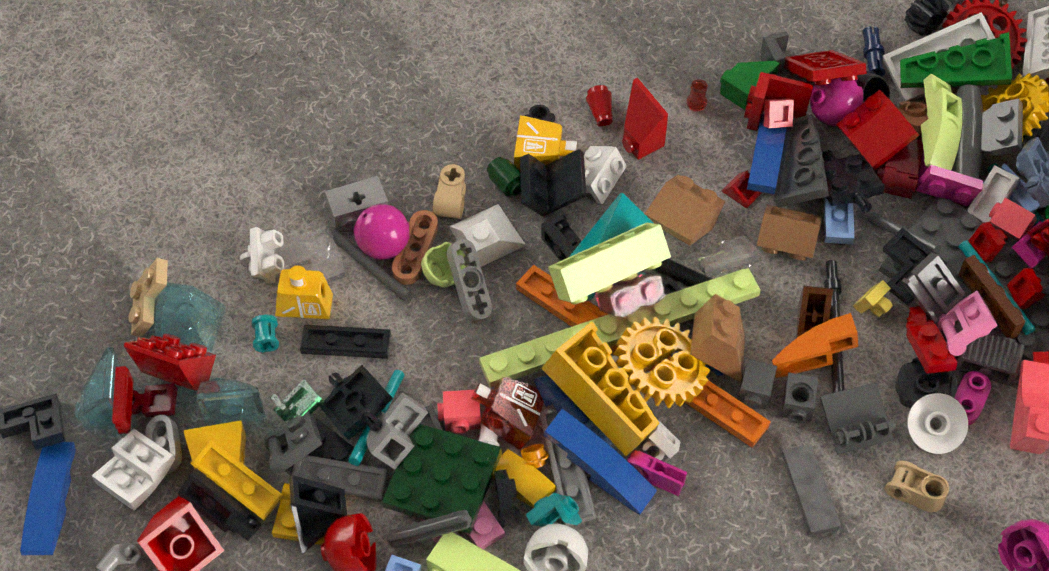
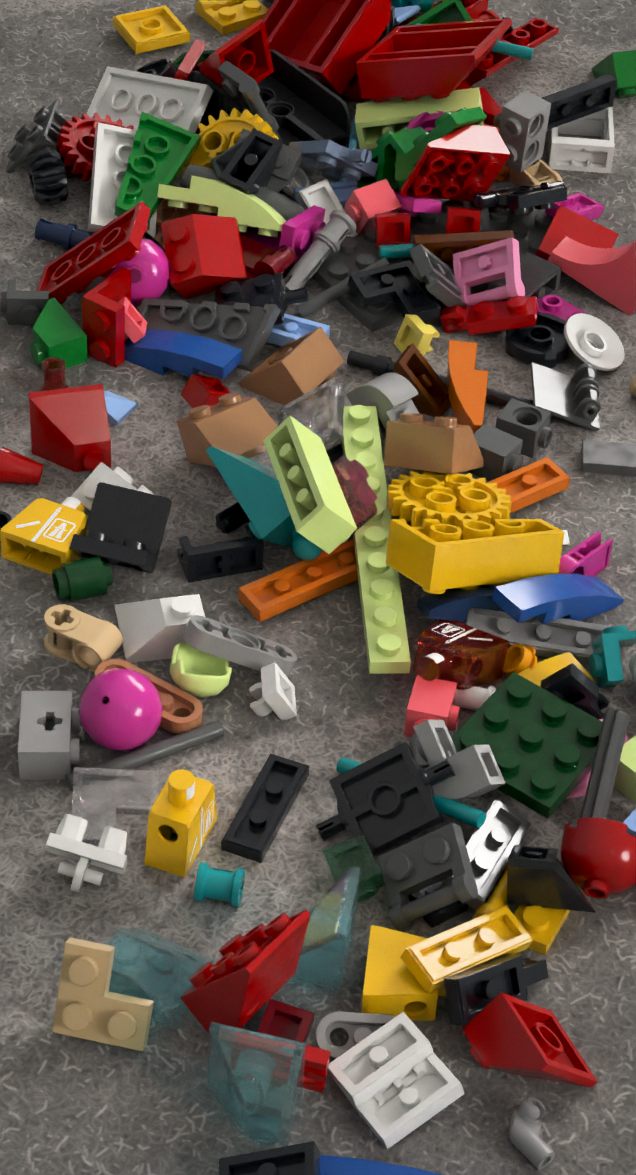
camera: 75 degrees left, 15 degrees down
(443, 316) = (274, 694): none -> white tile
(698, 137) = (118, 407): none -> light blue slope
(771, 302) = (389, 393): none -> light grey brick
(944, 203) = (325, 244): none -> light grey pin
(976, 118) = (248, 162): none -> black slope

